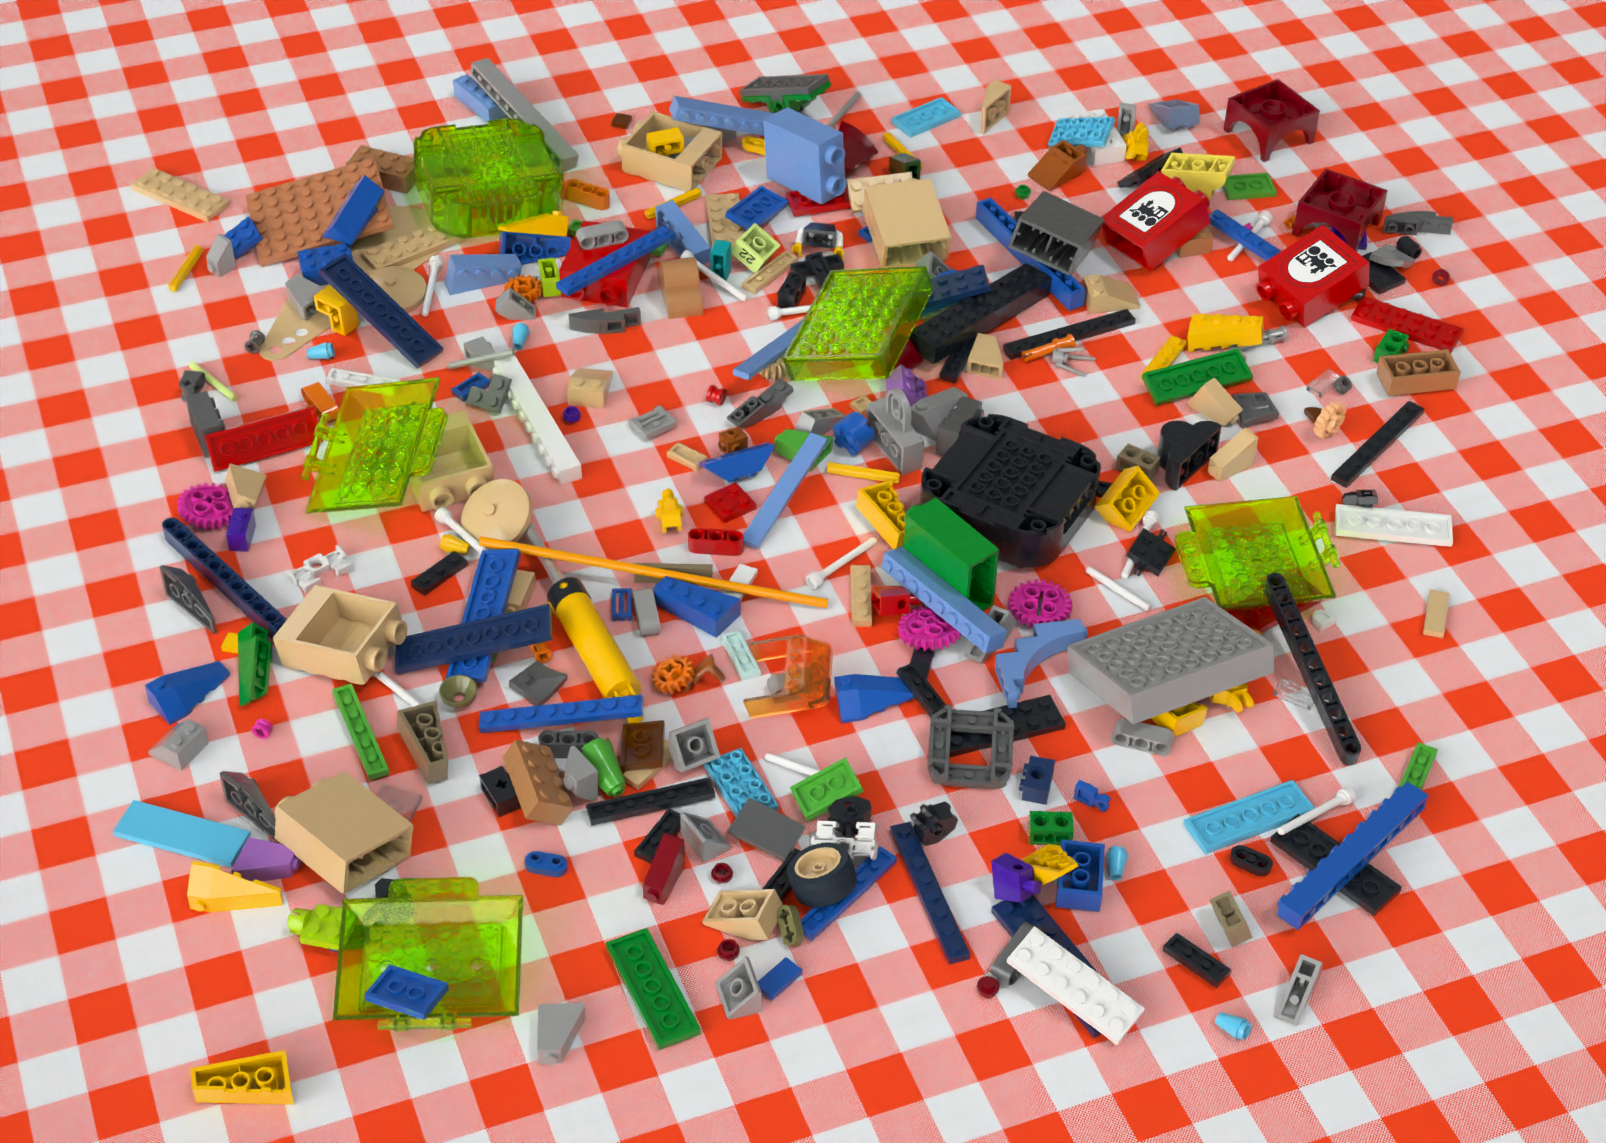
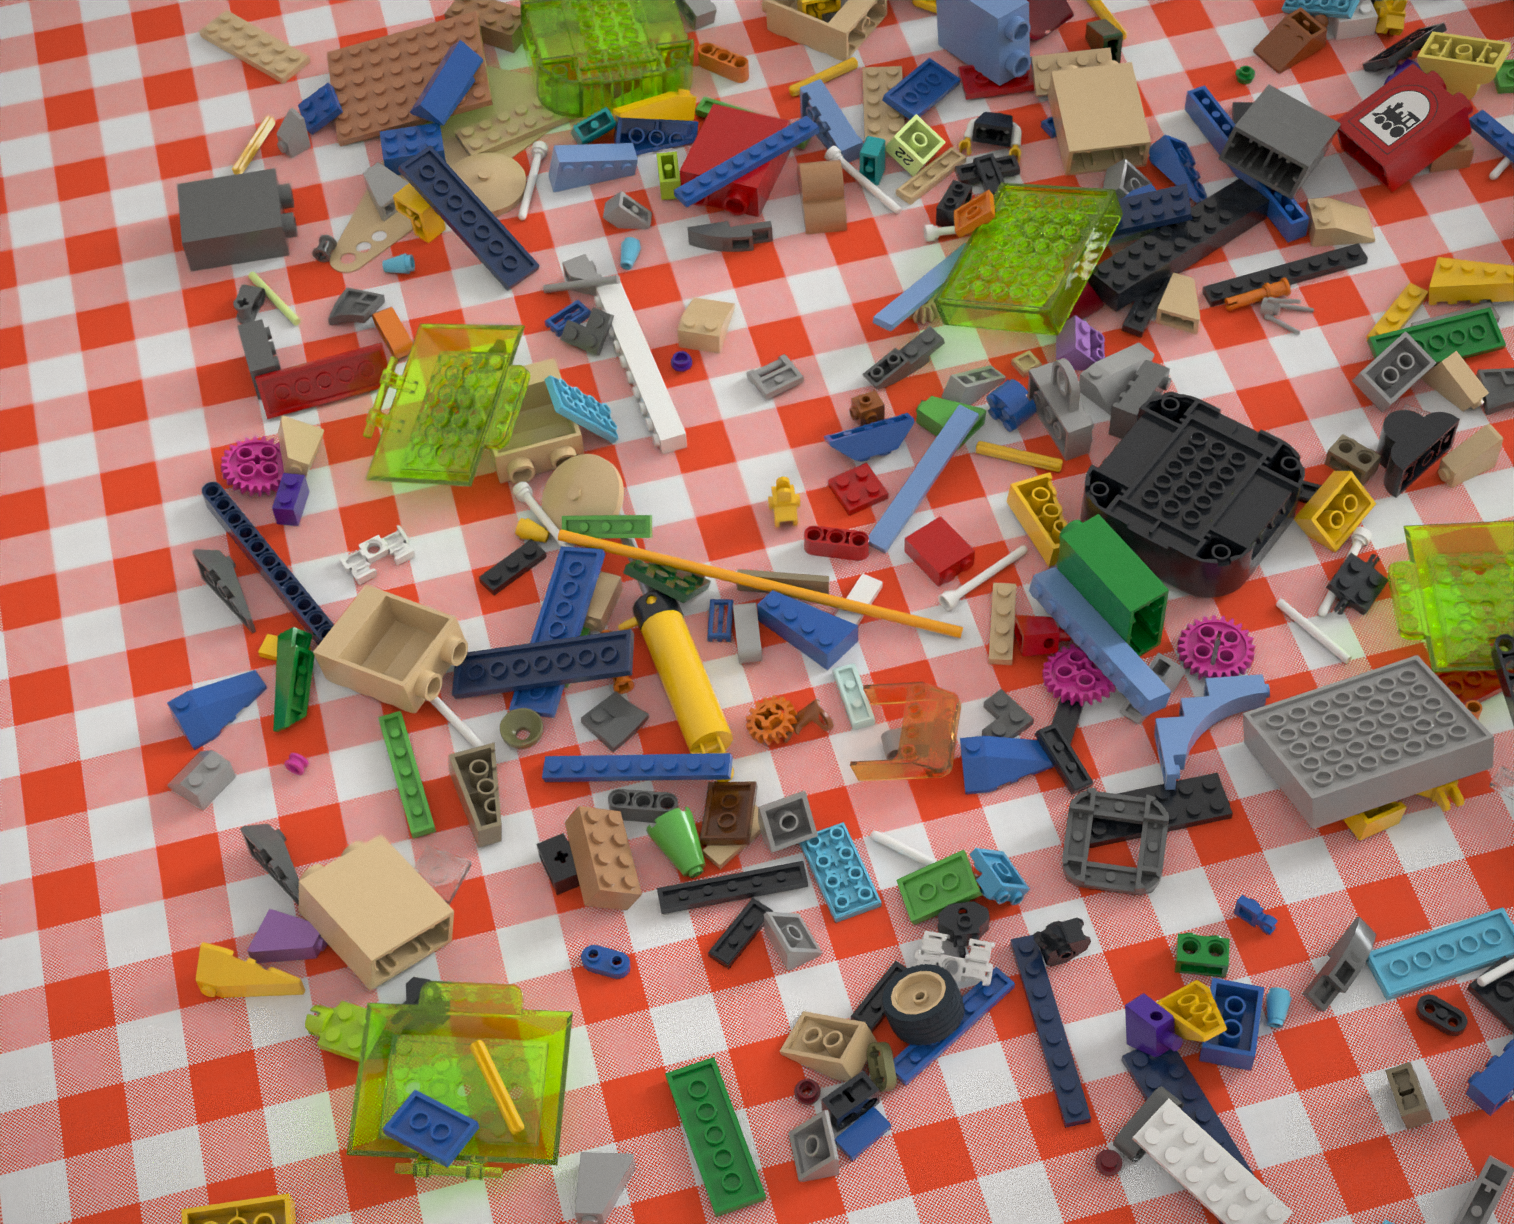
camera: 10 degrees right, 10 degrees up
(176, 321) = (235, 219): none -> dark grey brick
(181, 833) = (198, 894): medium azure tile -> none
(285, 384) = (355, 306): none -> dark grey plate
(350, 378) = (444, 306): white tile -> none
(461, 957) = (497, 1087): none -> yellow axle
(482, 242) = (593, 127): none -> teal brick
(491, 447) = (582, 409): none -> medium azure tile
(524, 532) = (610, 525): none -> bright green plate
(525, 286) = (638, 187): orange gear -> none
(576, 570) = (668, 580): none -> dark green plate
(581, 775) = (651, 854): light grey slope -> none
(602, 235) = (732, 126): light grey beam -> none
(664, 869) = (740, 983): dark red slope -> none
(686, 456) = (812, 423): tan tile -> none
(716, 395) = (852, 343): red wheel -> none
(722, 868) = (807, 982): dark red plate -> none
(766, 829) = (864, 935): dark grey tile -> none
(768, 951) = (851, 1100): none -> black brick
(803, 544) = (939, 551): none -> red brick
(810, 292) = (974, 214): none -> orange plate
(871, 661) = (1009, 716): none -> dark grey plate
(876, 778) = (999, 877): none -> dark azure plate
(972, 254) = (1177, 163): none -> blue wedge
(1037, 779) = (1195, 875): dark blue brick -> none
(1143, 737) = (1327, 840): light grey beam -> none
(1165, 396) = (1394, 371): none -> light grey brick
(1166, 828) = (1344, 965): none -> dark grey slope
(1196, 960) = (1362, 1146): black plate -> none

